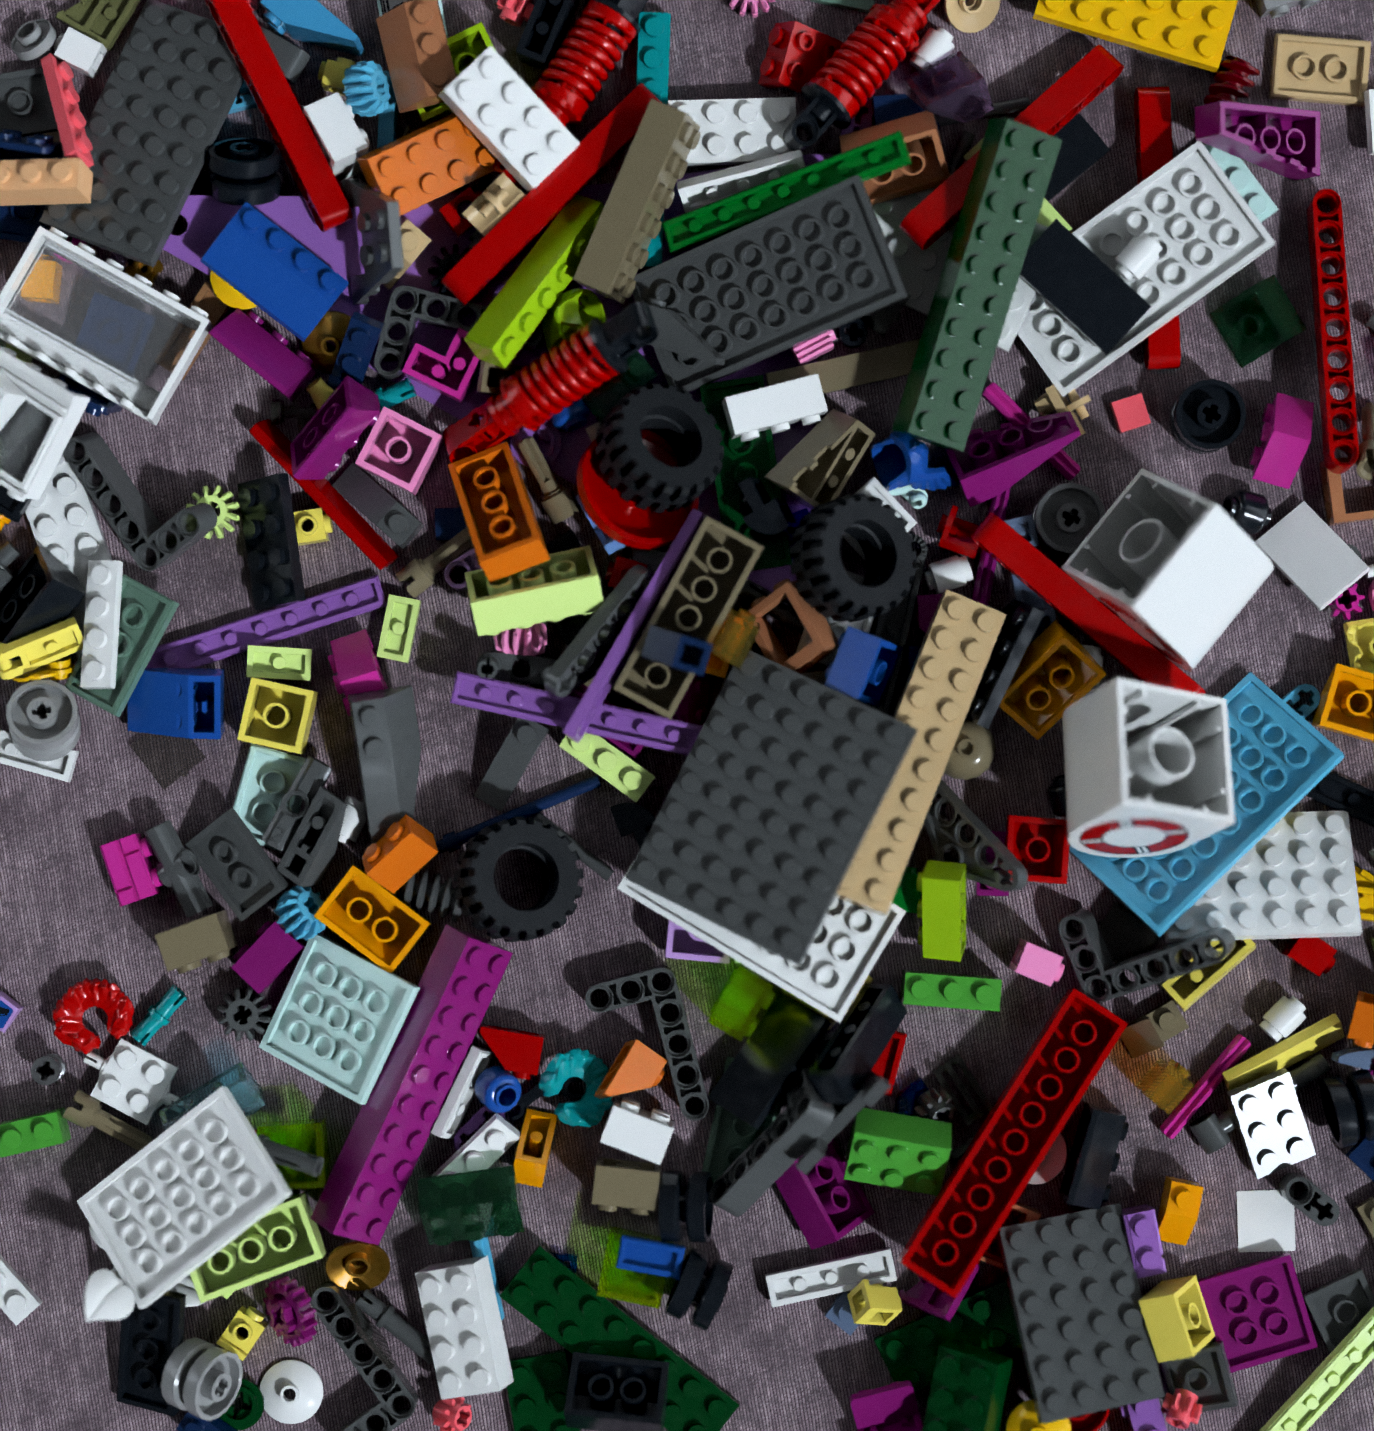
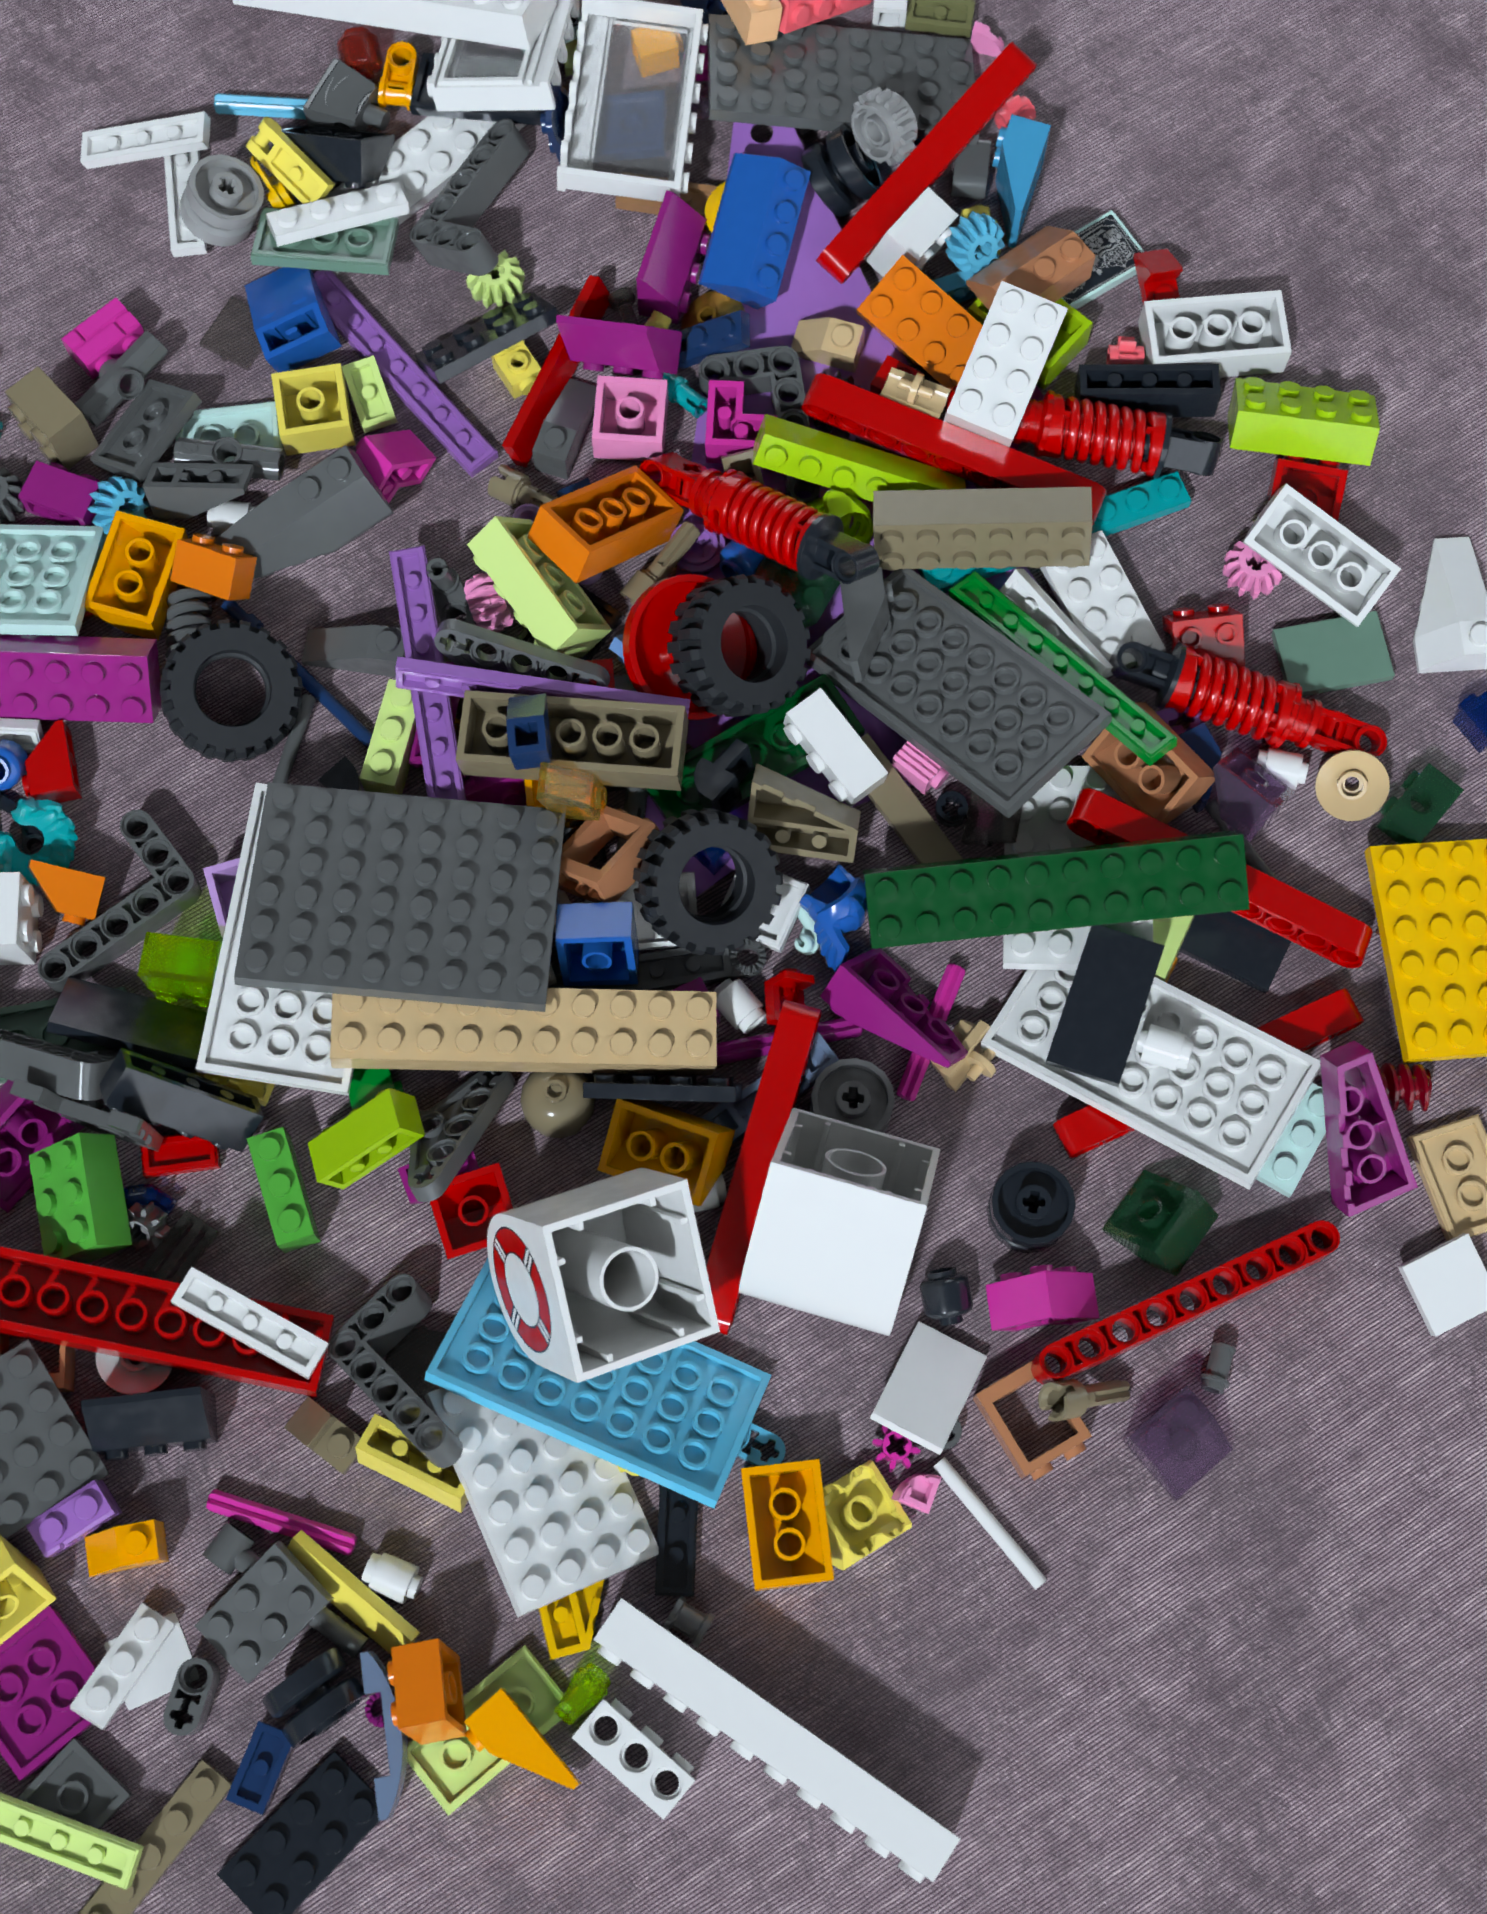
camera: 65 degrees right, 15 degrees down
(151, 273) = (711, 141): pearl gold plate -> none
(231, 119) = (884, 125): none -> light grey gear
(381, 238) = (817, 305): dark grey wing -> none
(398, 628) = (450, 491): yellowish green plate -> none
(1037, 963) = (347, 1266): bright pink brick -> none
(1060, 1053) = (249, 1323): none -> white plate
(1130, 413) = (998, 1128): coral tile -> none
(1165, 1084) = (262, 1466): clear yellow brick -> none
(1267, 1242) = (122, 1666): none -> white plate
(1311, 954) = (477, 1579): red brick -> none

